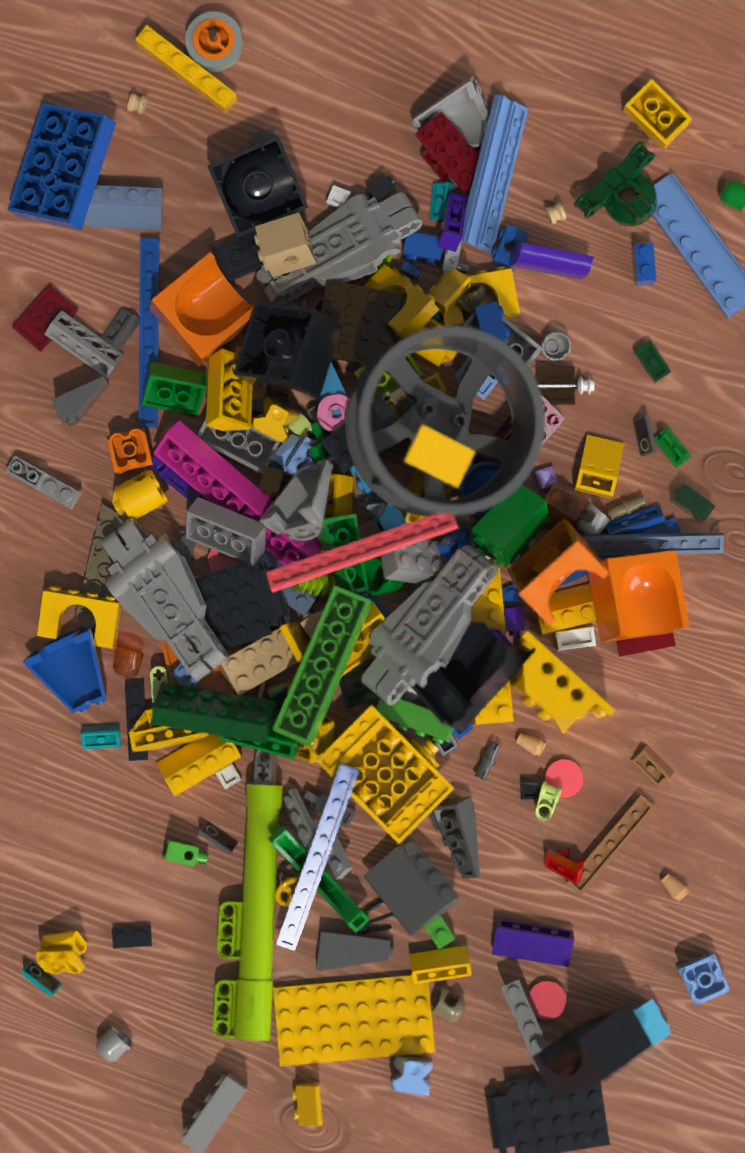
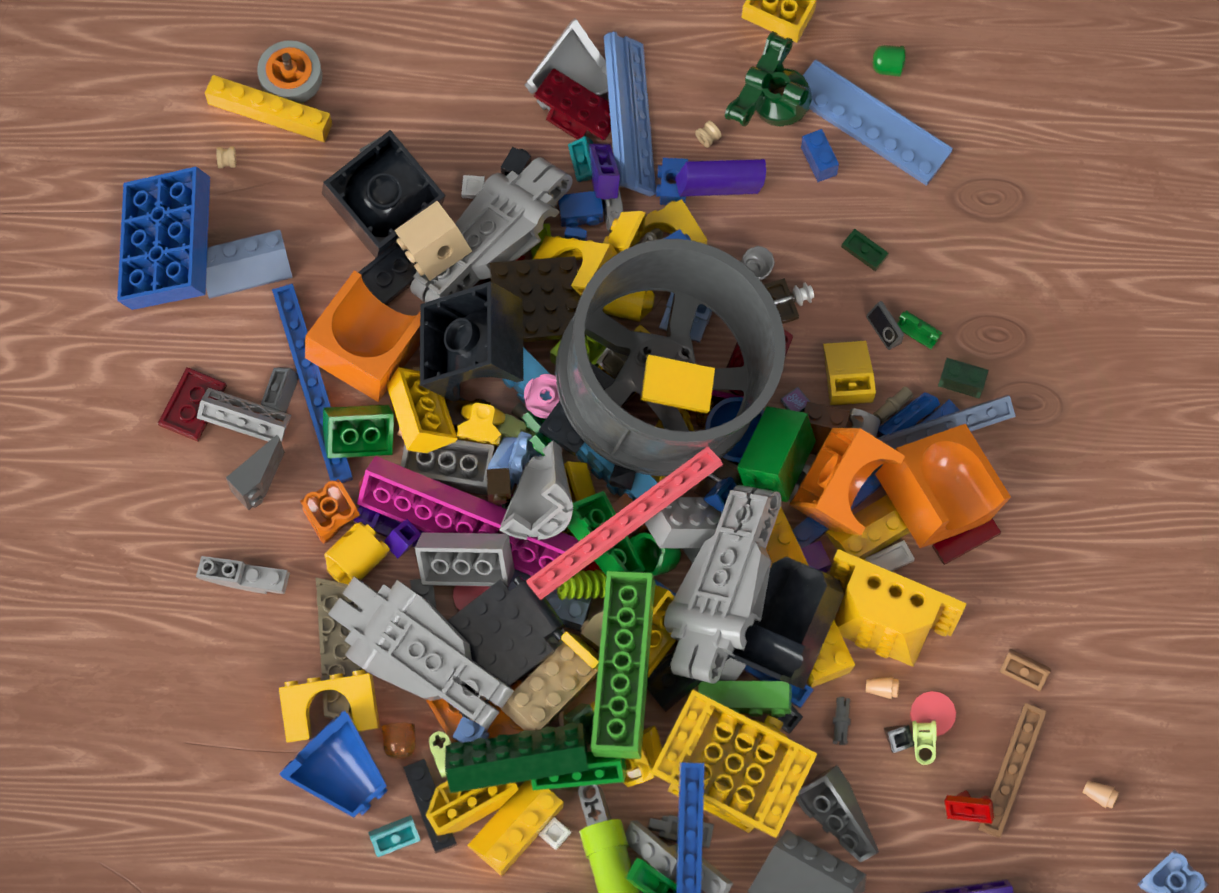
camera: 15 degrees left, 15 degrees down
(181, 495) = (402, 538): none -> dark purple brick

